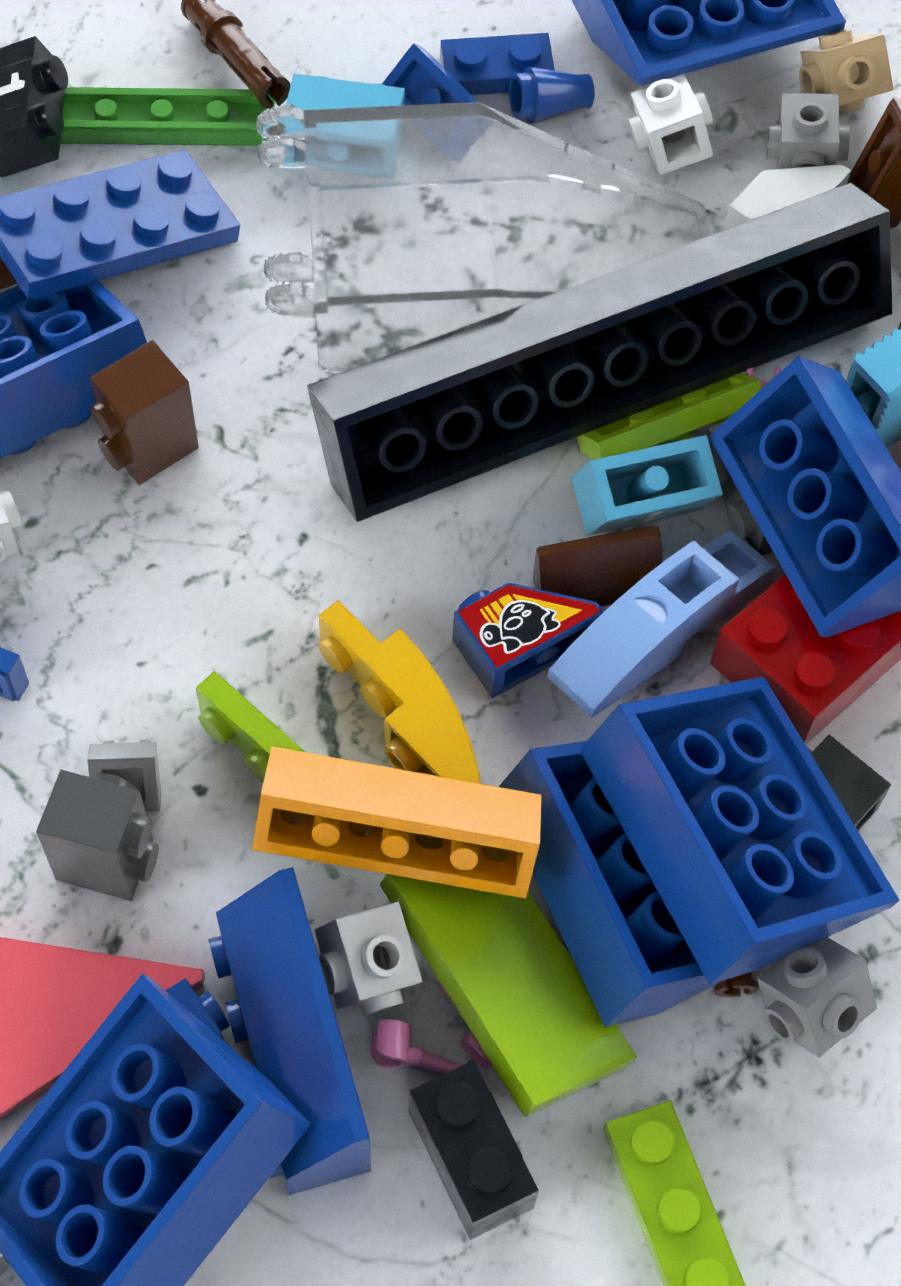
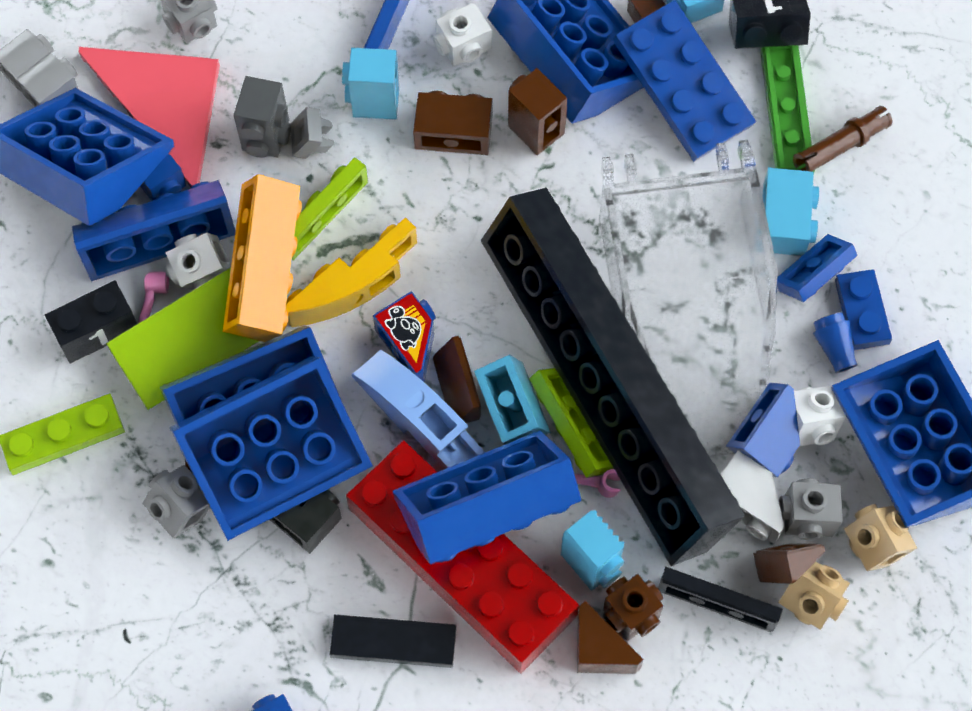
camera: 90 degrees right, 5 degrees up
(55, 650) = (372, 83): none -> medium azure brick
(134, 548) = (453, 123): none -> reddish brown brick
(691, 167) = (770, 430): none -> slope

